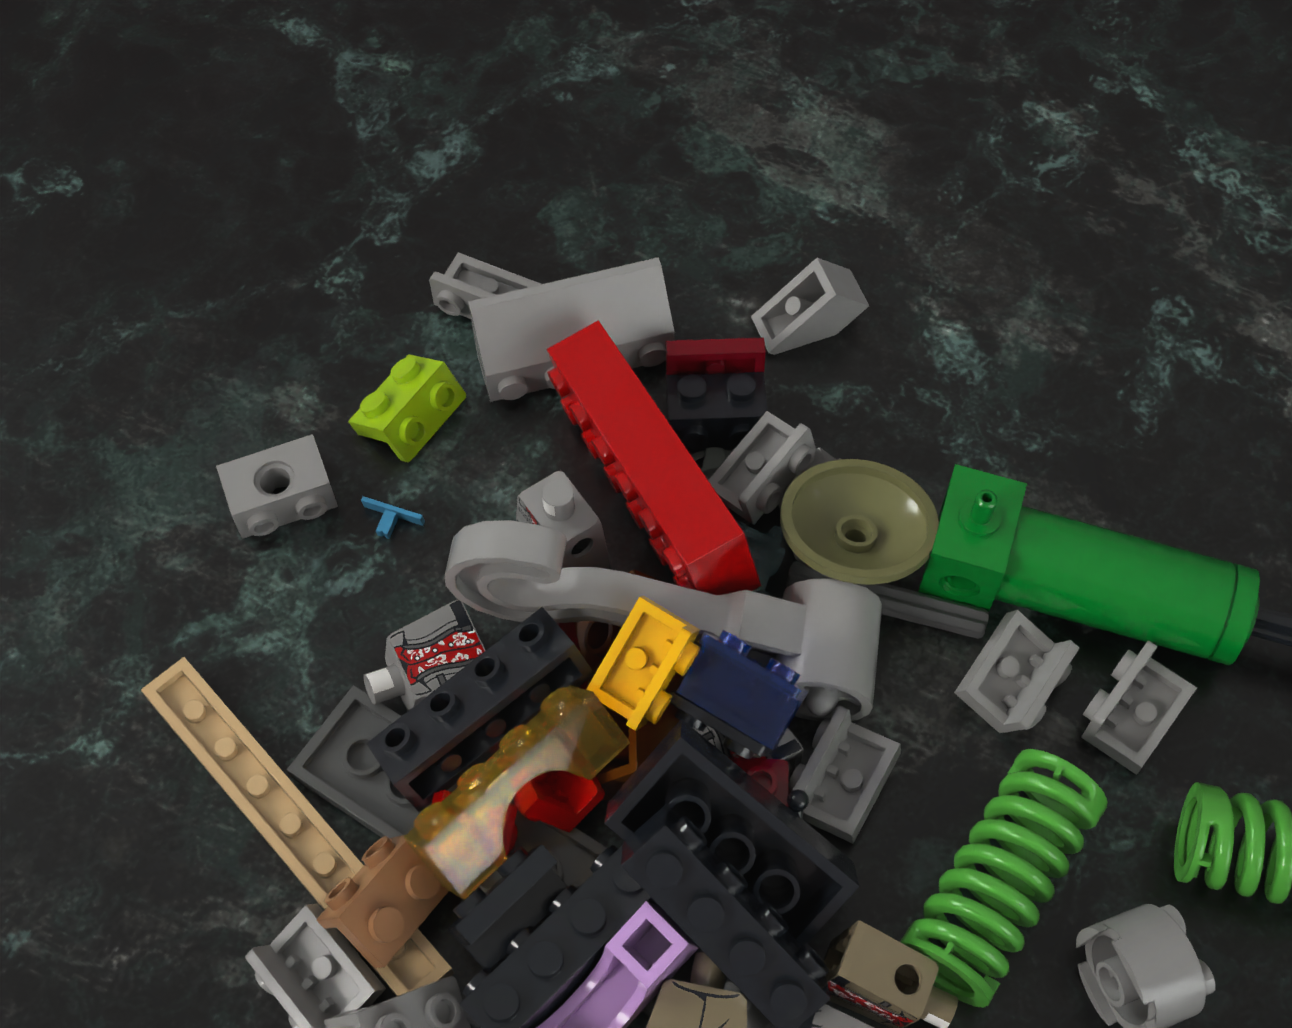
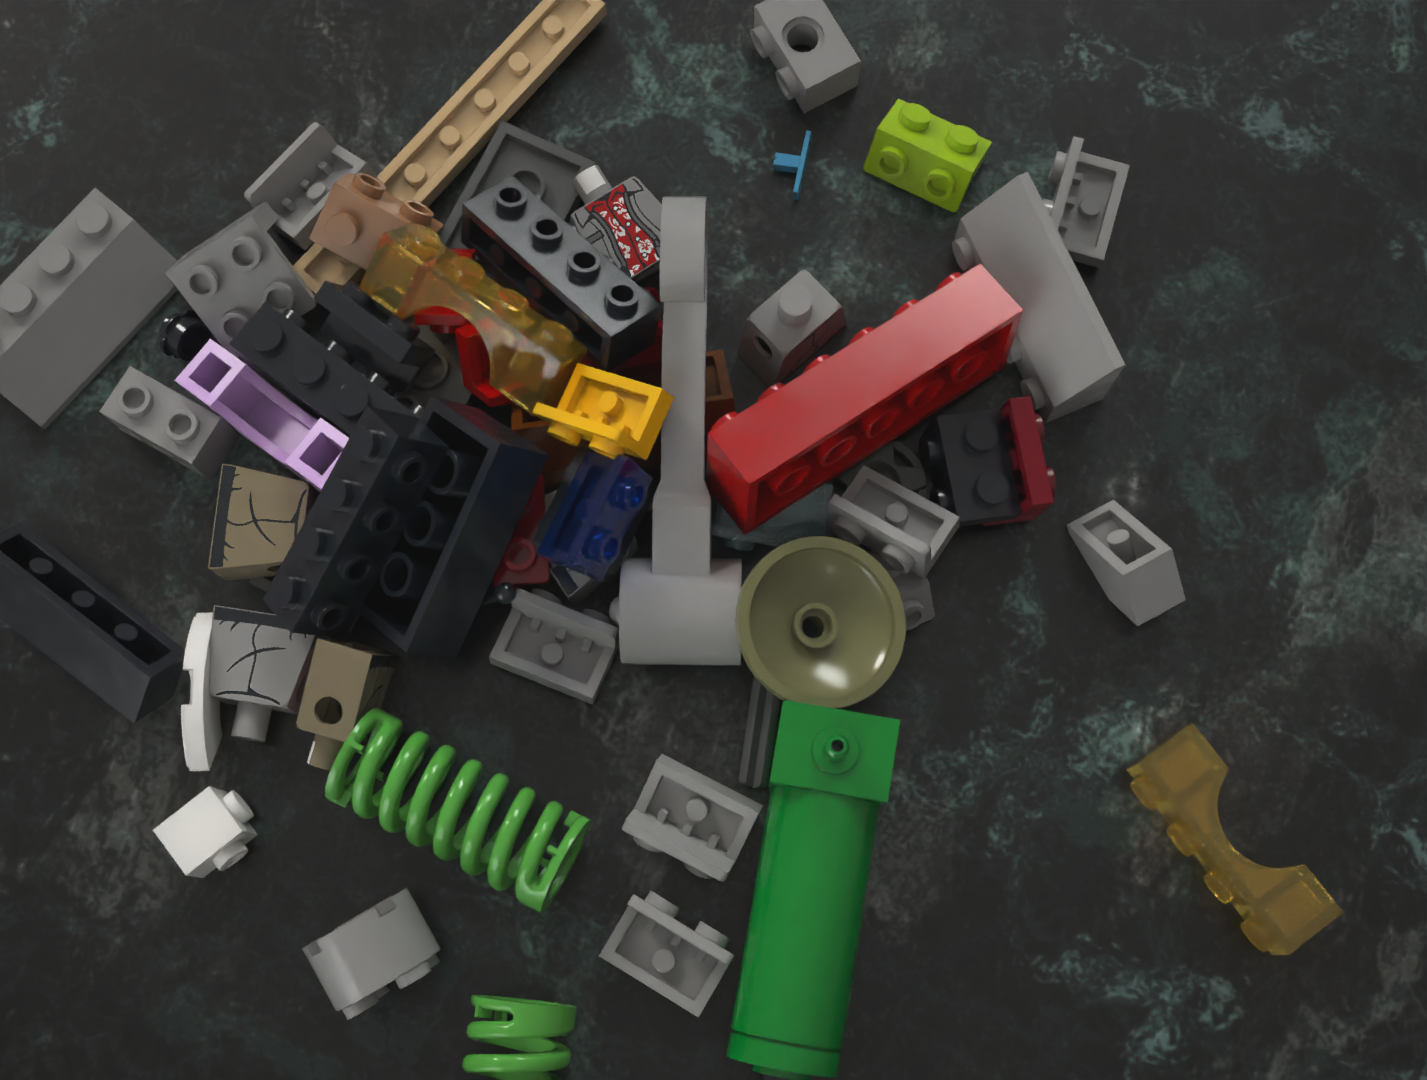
camera: 85 degrees right, 15 degrees up
(1000, 297) = (1278, 904): none -> clear yellow arch

